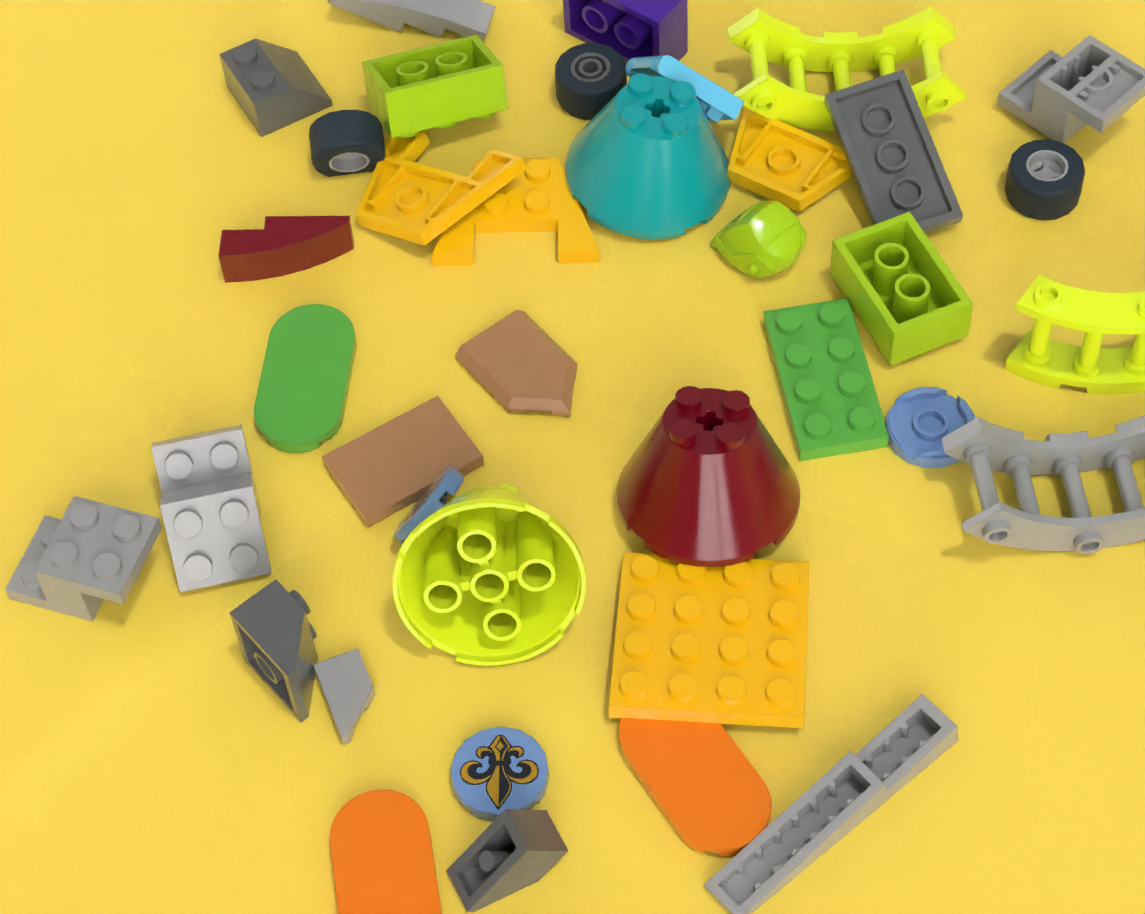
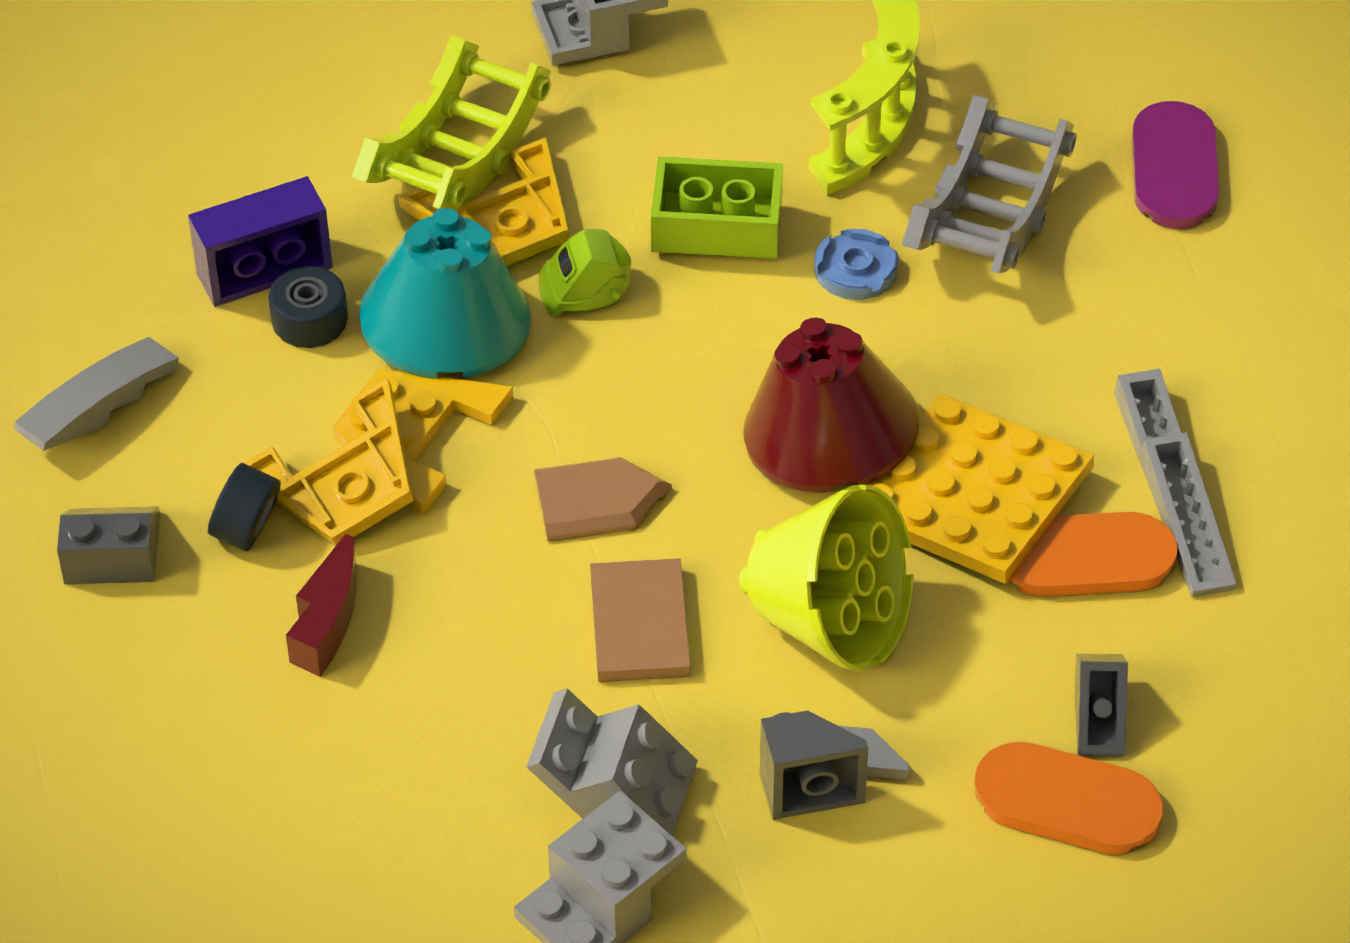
camera: 65 degrees left, 5 degrees down
(305, 378) = (489, 652): bright green tile -> none
(429, 502) = (722, 607): medium blue tile -> none
(435, 86) = (237, 407): lime brick -> none
(499, 772) = (1010, 680): medium blue tile -> none
(714, 100) = (382, 238): medium azure container -> none
(825, 379) = (750, 300): bright green plate -> none
(892, 152) = (578, 145): dark grey plate -> none
(1044, 179) = (665, 73): black wheel -> none

